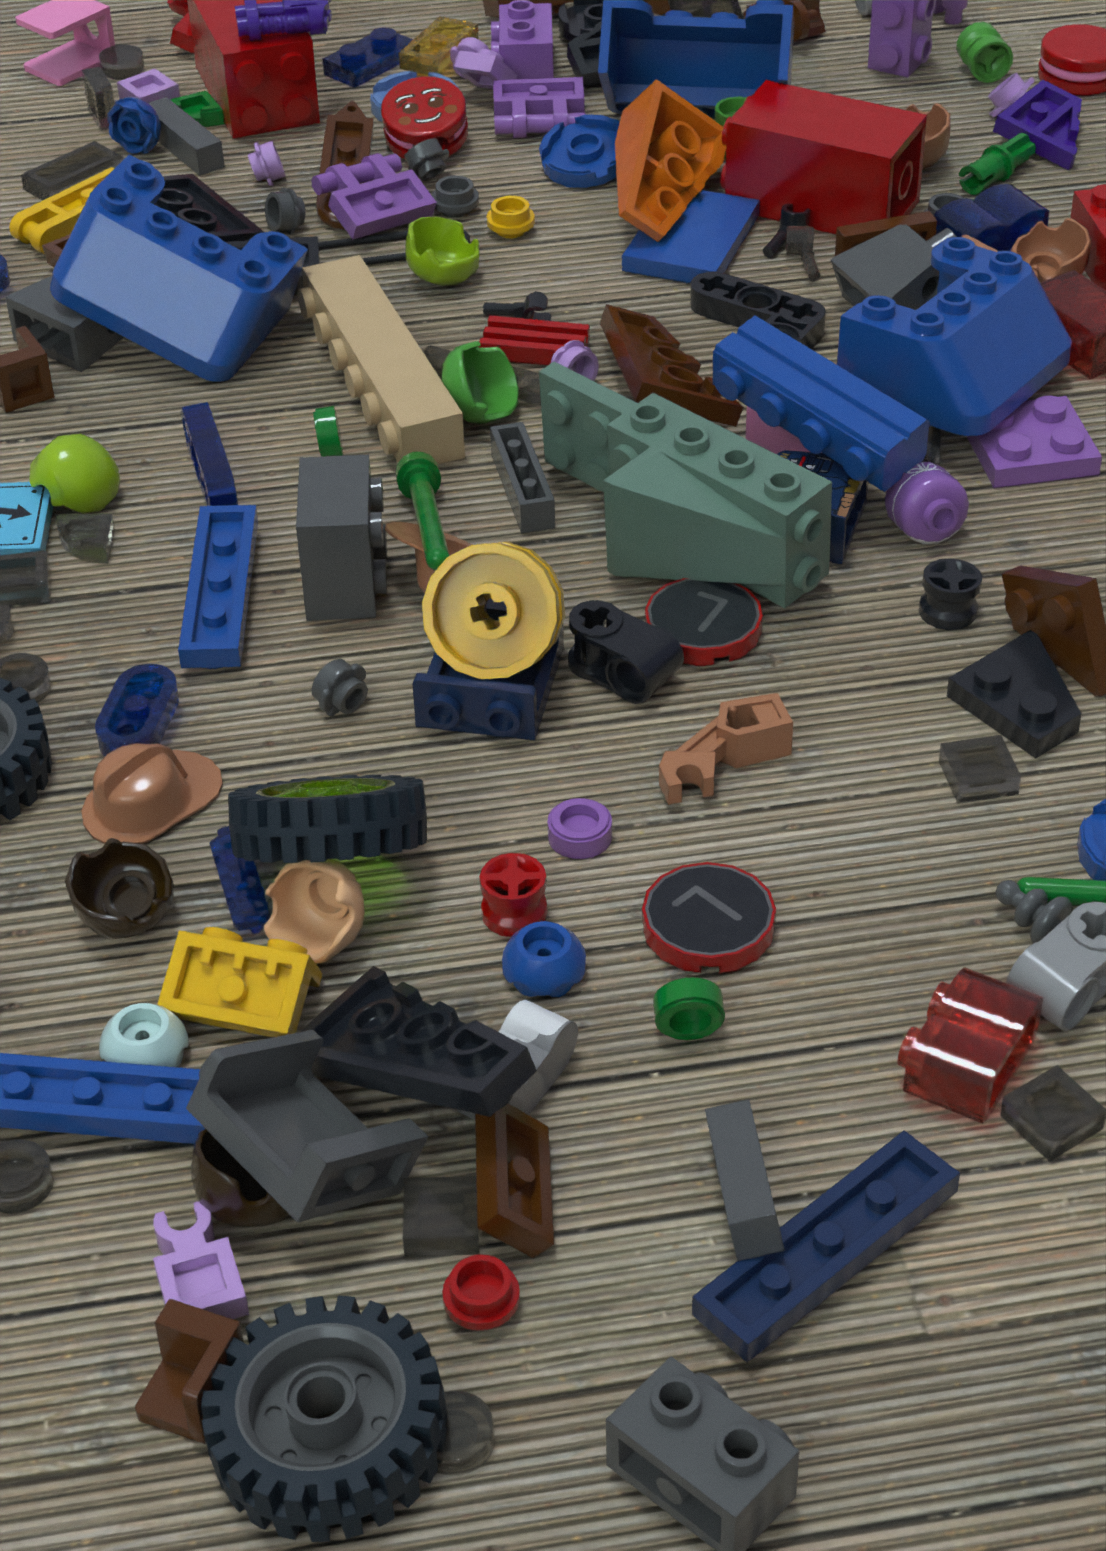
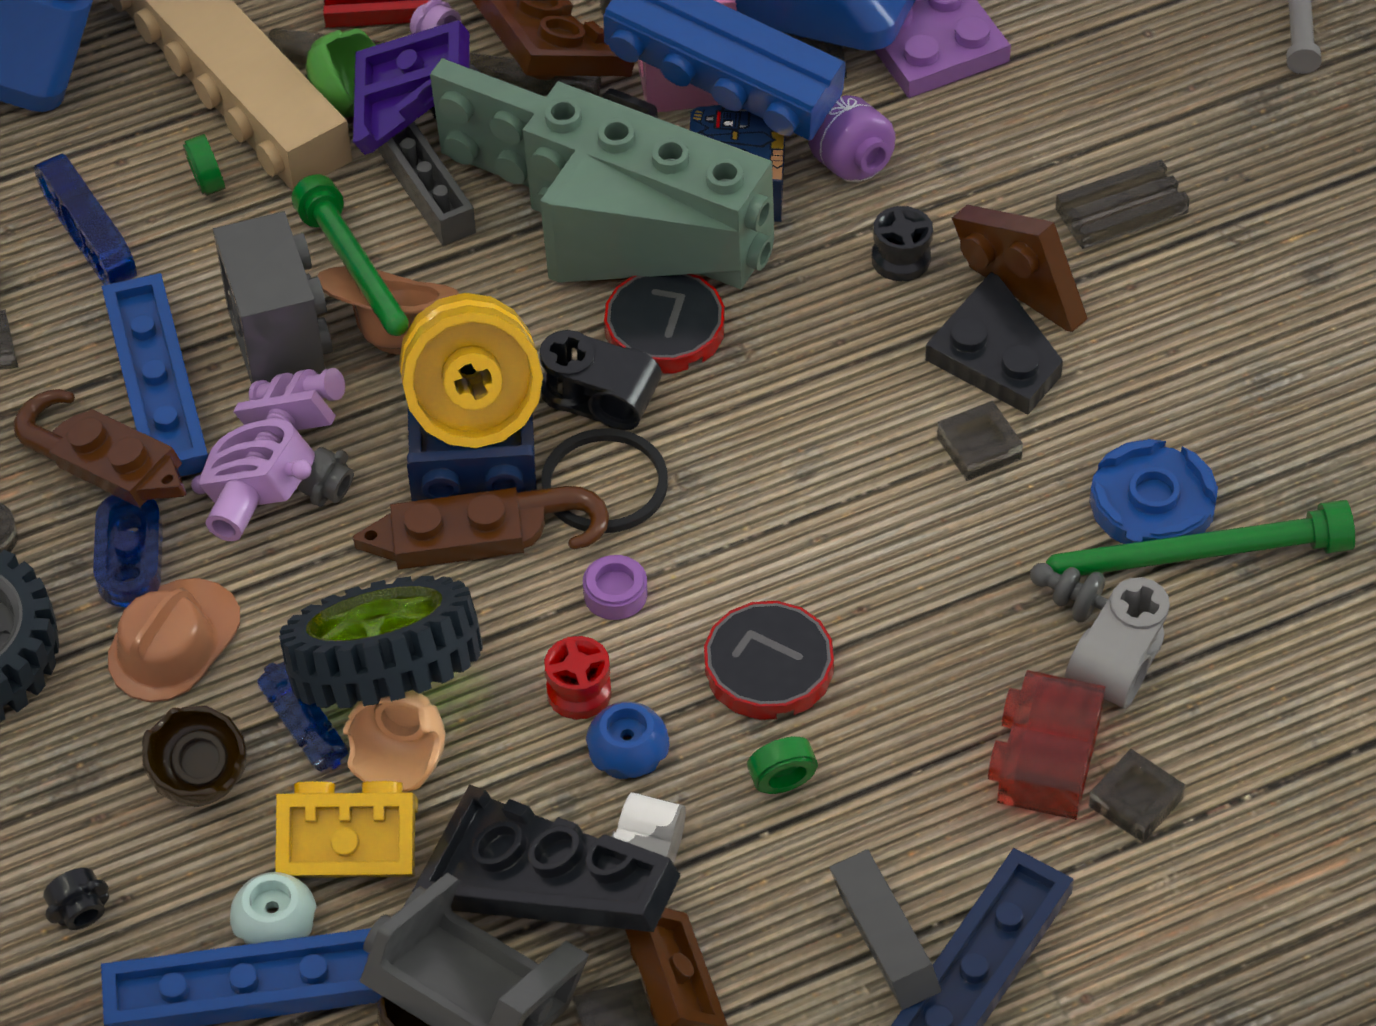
camera: 15 degrees left, 10 degrees up
(145, 628) = (102, 451): none -> reddish brown plate
(294, 654) = (266, 454): none -> lavender torso
(468, 752) = (476, 525): none -> reddish brown plate
(512, 390) = (396, 81): none -> dark purple wing
(607, 778) = (615, 435): none -> black piece
(740, 736) = (769, 446): nougat piece -> none

